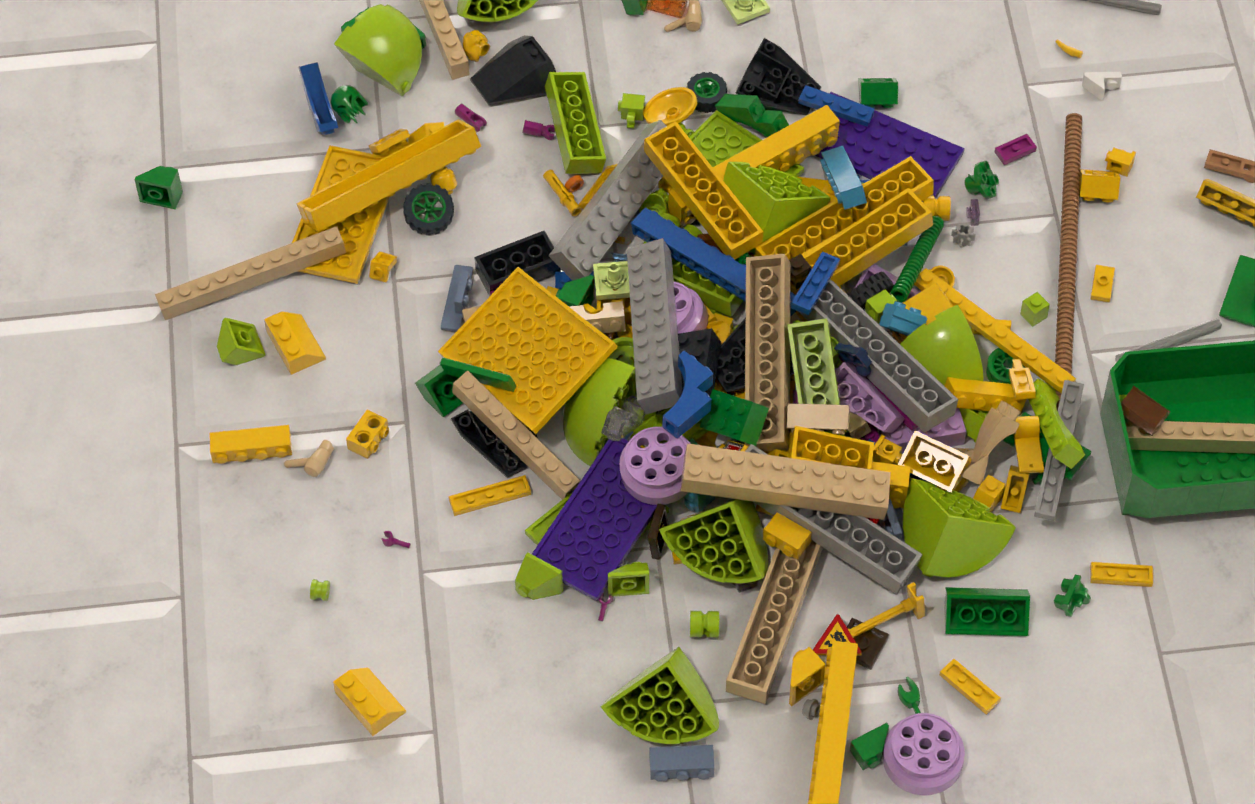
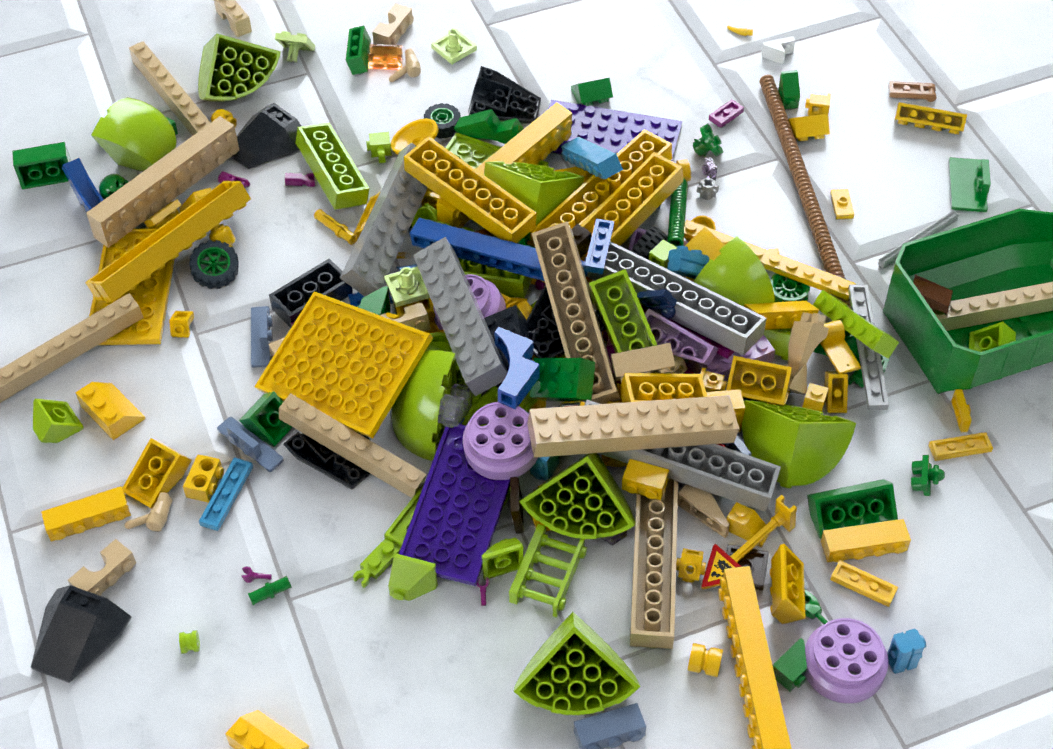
camera: 15 degrees left, 5 degrees down
(219, 556) = (75, 632): none -> black wedge
(242, 514) = (117, 561): none -> tan arch
(278, 57) = (41, 165): none -> green brick
(324, 418) = (155, 472): none -> yellow slope
(385, 454) = (226, 494): none -> dark azure plate
(398, 105) = (163, 182): none -> tan brick
(404, 558) = (269, 590): none -> green pin
(420, 409) = (250, 444): none -> sand blue bracket
(482, 375) = (277, 395): green tile -> none
(489, 495) = (339, 509): yellow tile -> none
(511, 554) = (377, 561): none -> lime plate
(574, 183) = (344, 216): orange tile -> none
(661, 584) = (532, 556): none -> lime fence
(704, 624) = (588, 584): lime wheel -> none
(789, 721) = (705, 660): none -> yellow wheel
(806, 674) = (705, 609): yellow slope -> none
(807, 629) = (694, 559): none -> yellow brick
(811, 709) = (720, 641): light grey plate -> none
(839, 575) = (704, 508): none -> tan slope
(840, 106) = (579, 110): blue plate -> none
(874, 600) = (745, 522): none -> yellow slope
(893, 671) = (787, 586): none -> yellow slope
(982, 758) = (905, 650): none -> dark azure brick
(987, 646) = (865, 540): none -> yellow brick
(1021, 381) = (809, 295): yellow hinge -> none
(1034, 309) = (793, 235): lime brick -> none
(1092, 137) = (789, 89): none -> green slope
(1136, 539) = (961, 410): none -> yellow plate
(1193, 470) = (991, 337): none -> lime slope

